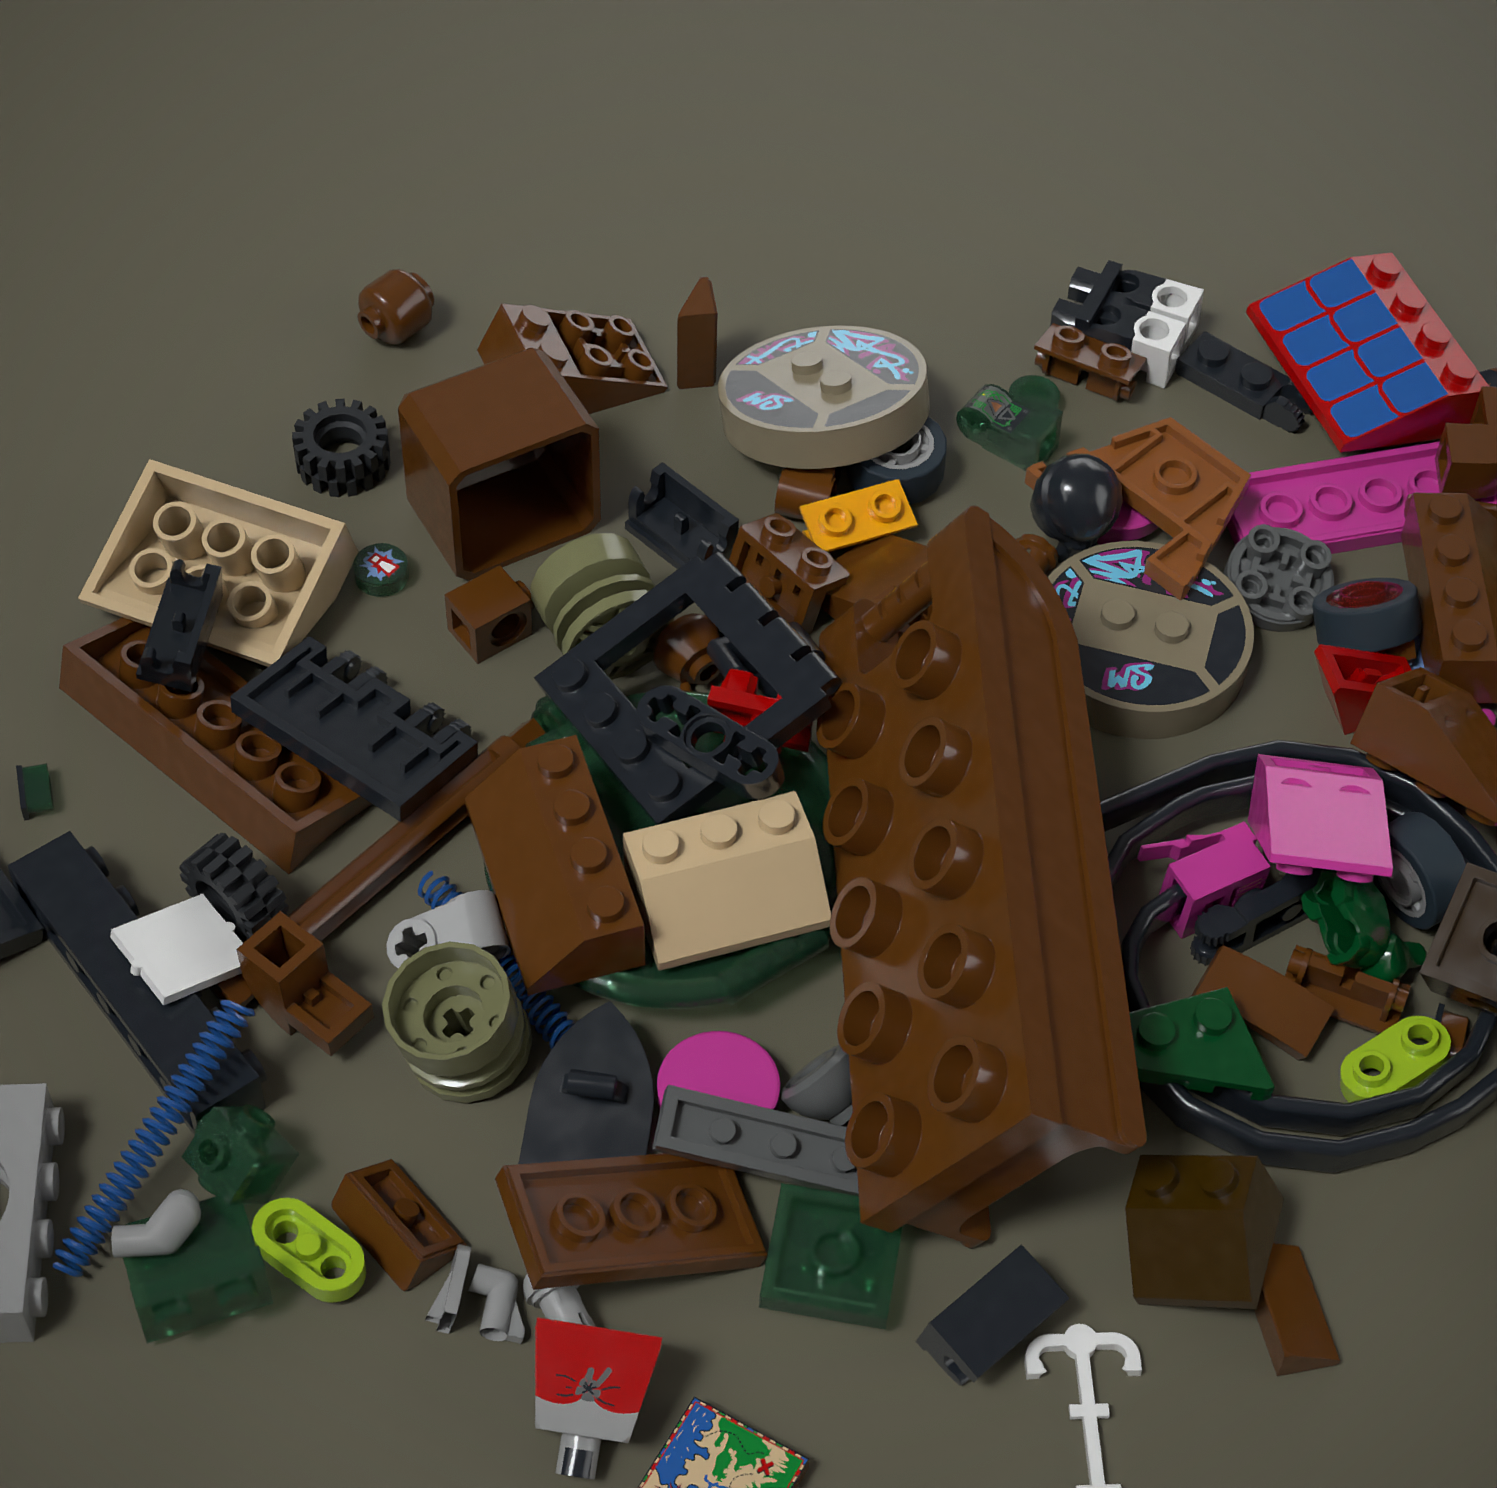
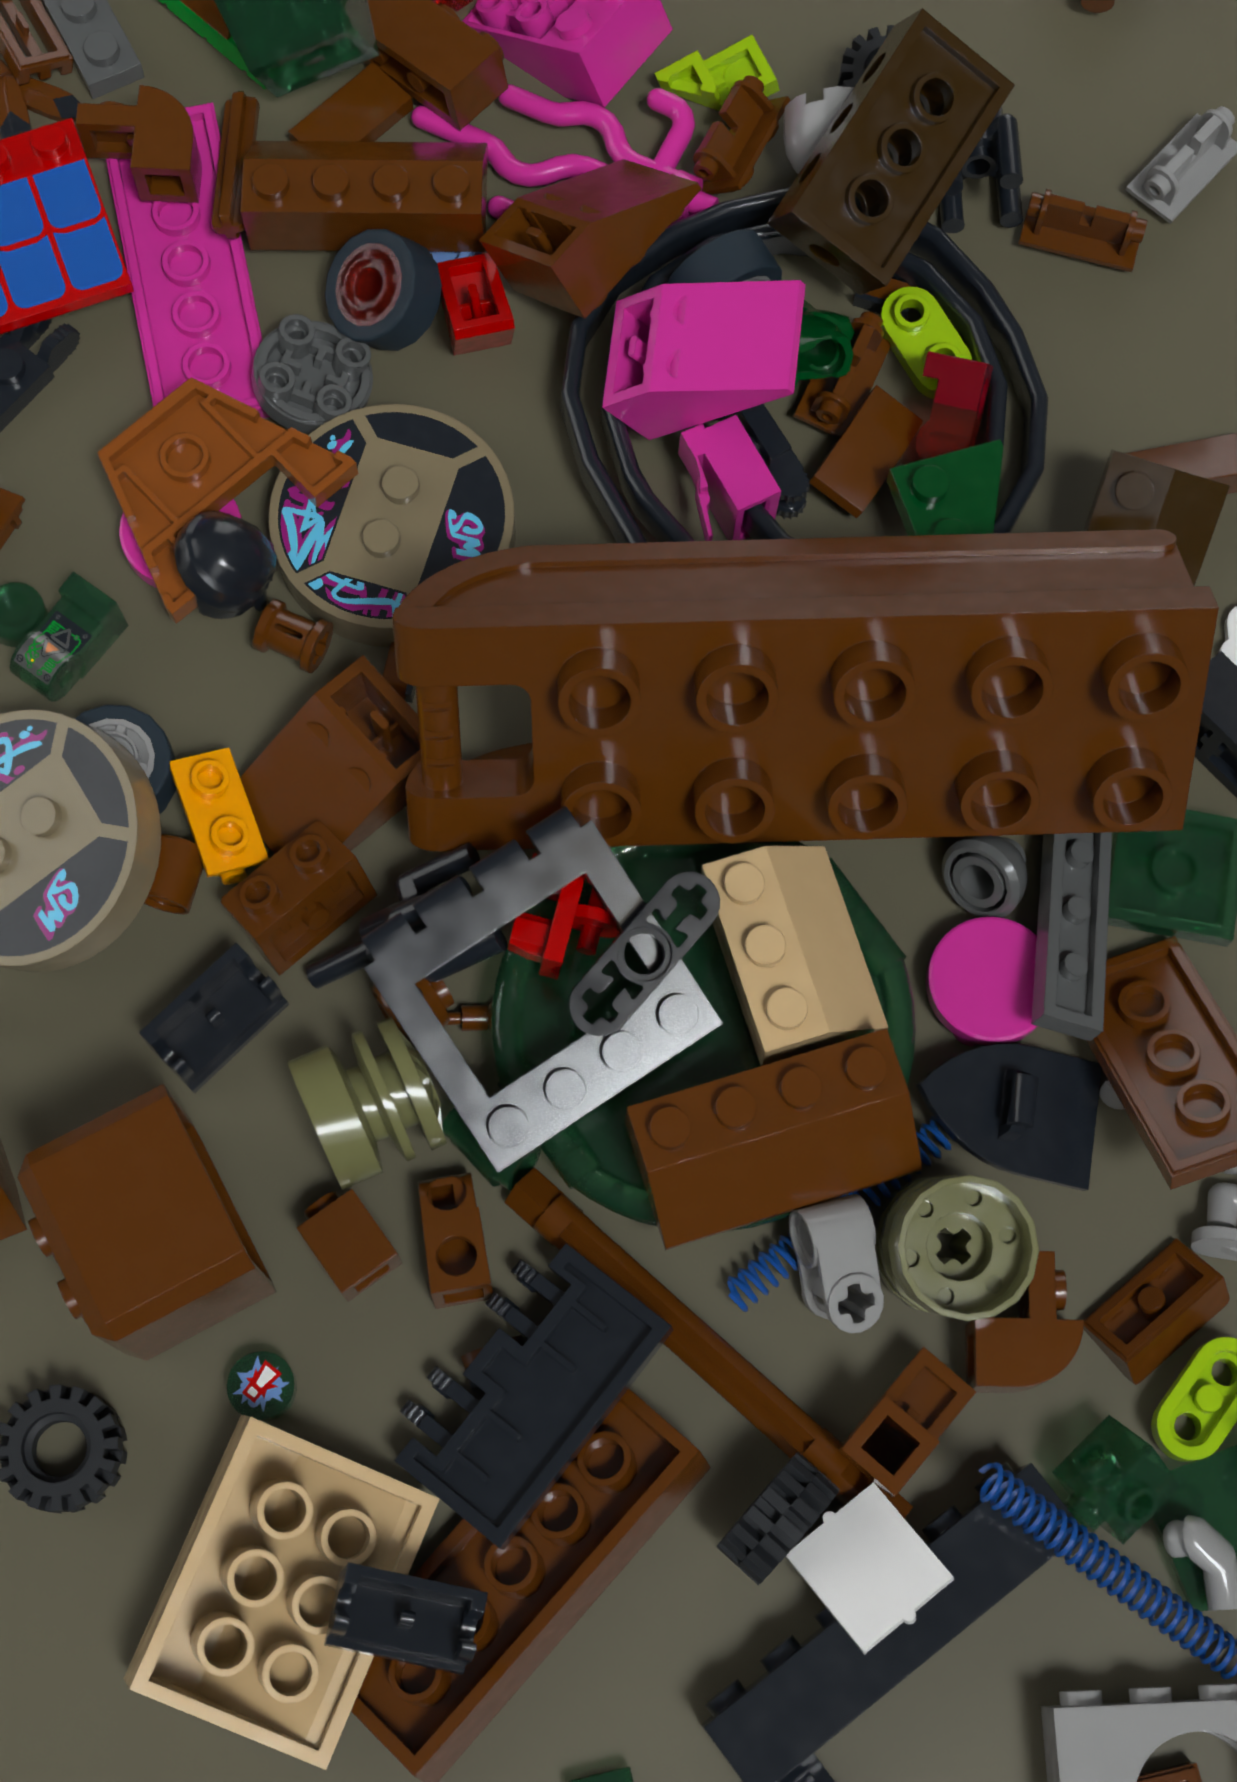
camera: 90 degrees left, 20 degrees up
(374, 1105) = (1029, 1349): none -> reddish brown brick
(488, 682) = (454, 1241): none -> reddish brown leg
(1319, 1064) = (956, 404): none -> leg

